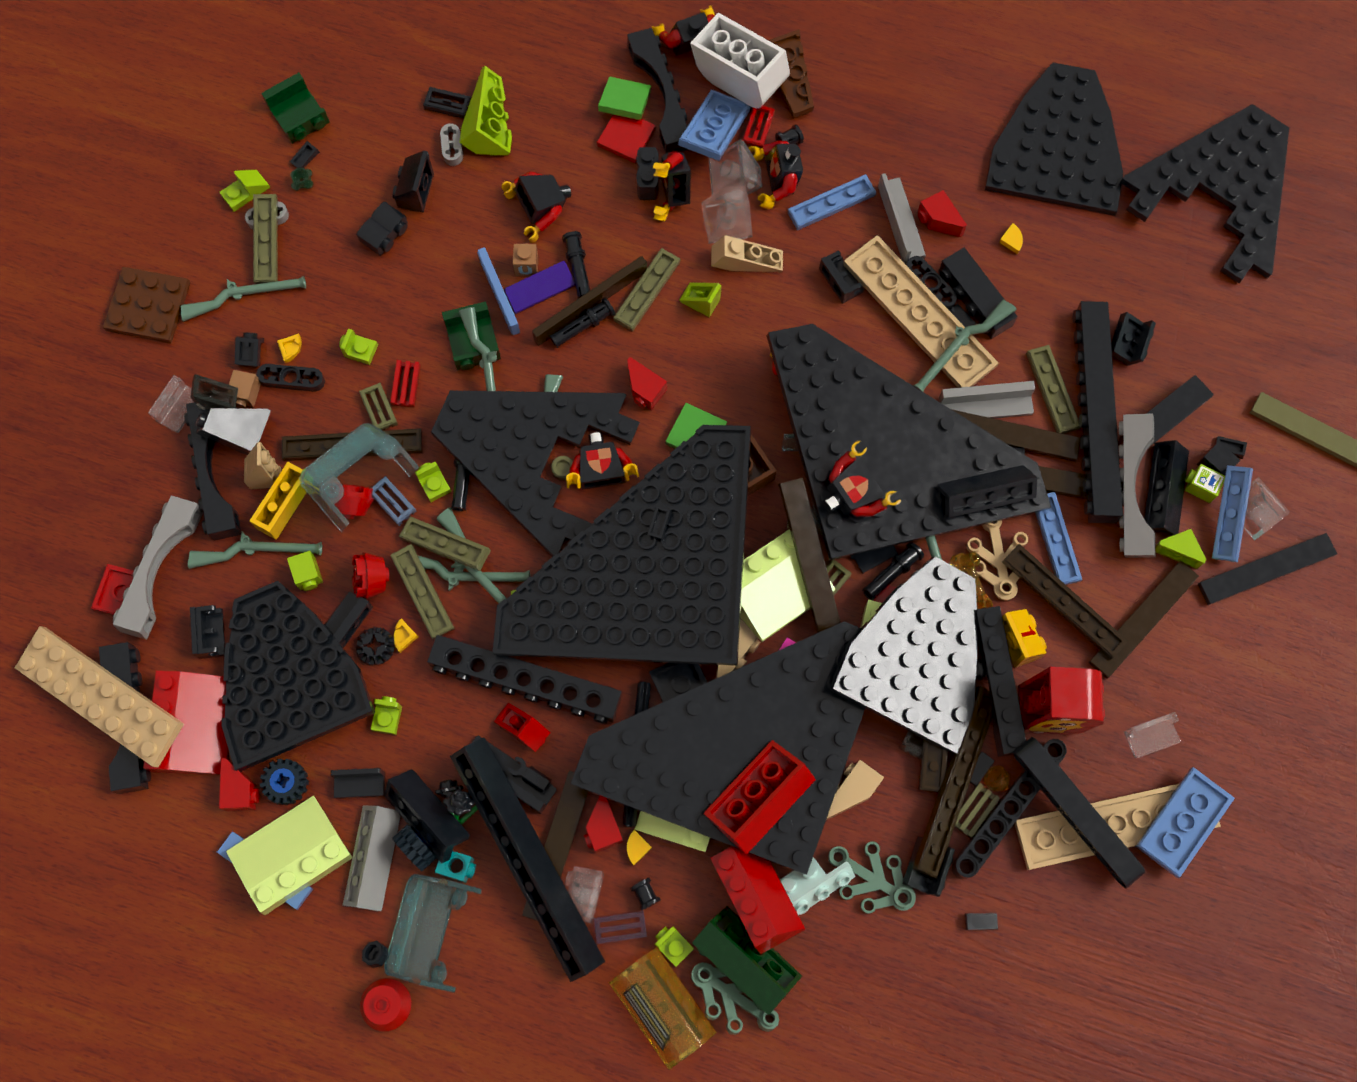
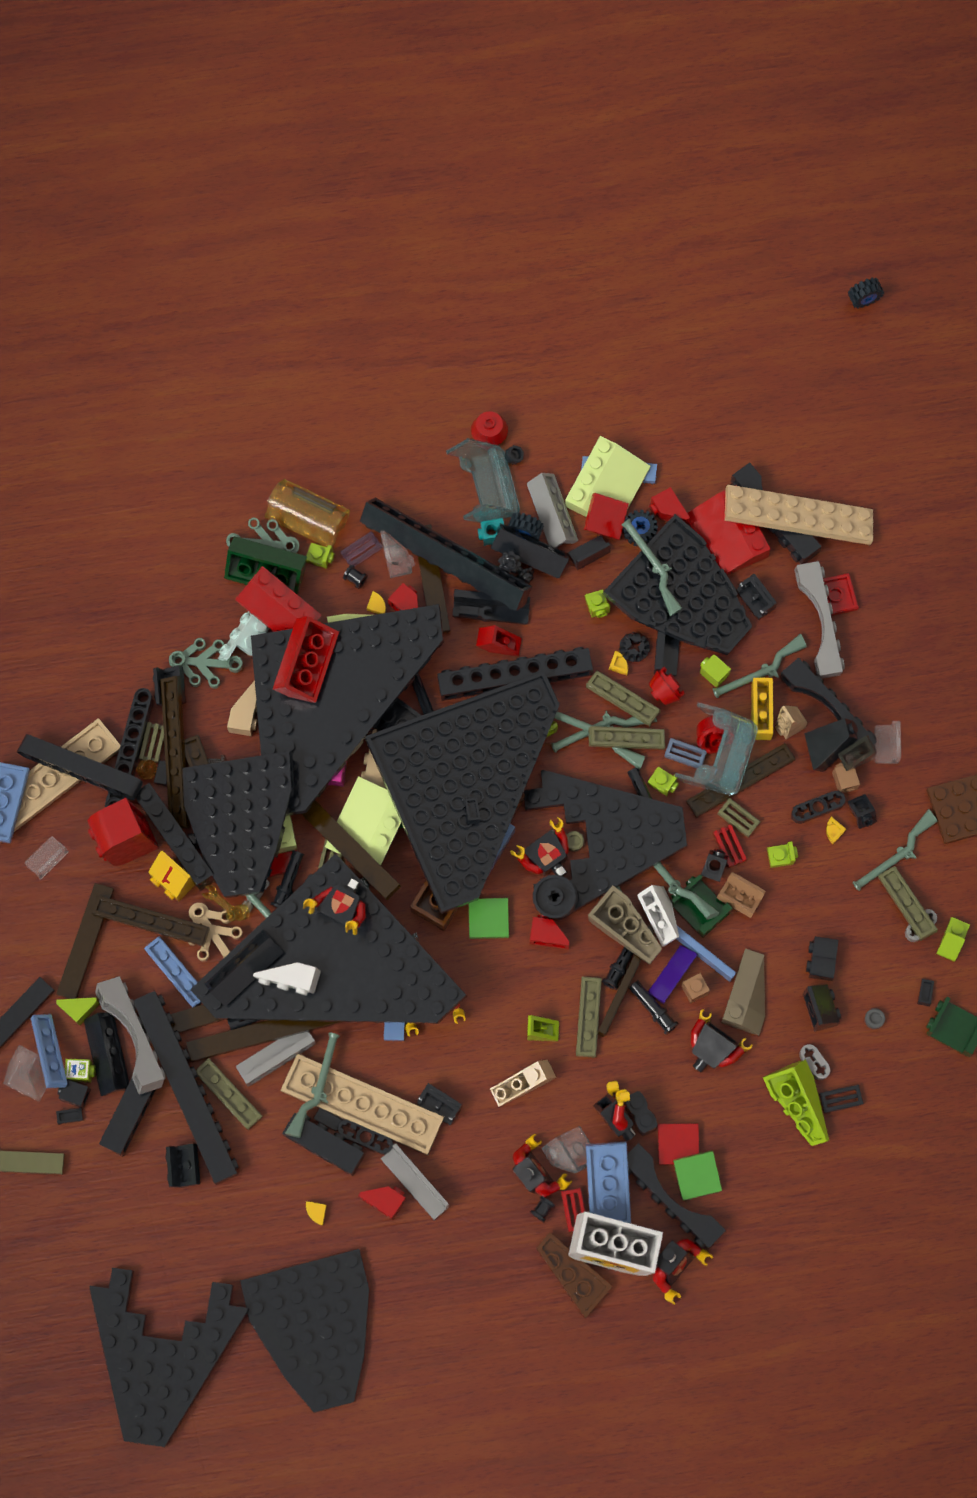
camera: 155 degrees right, 0 degrees up
(298, 174) = (914, 964): clear green plate -> none
(304, 662) = (670, 601): none -> sand green piece
(314, 811) = (606, 516): none -> red tile
(369, 156) = (874, 1018): none -> dark grey tile
(425, 326) = (741, 894): none -> medium nougat bracket
(433, 365) = (711, 872): none -> black brick
(483, 227) = (747, 999): none -> dark tan wedge
(518, 341) = (660, 913): none -> white slope
(562, 352) = (622, 922): none -> dark tan wedge
(617, 405) = (544, 893): none -> black wheel
(727, 214) = (557, 1111): clear slope -> none
(831, 202) = (479, 1170): medium blue tile -> none
(939, 447) = (295, 976): none -> white slope
(981, 921) = (117, 671): black piece -> none

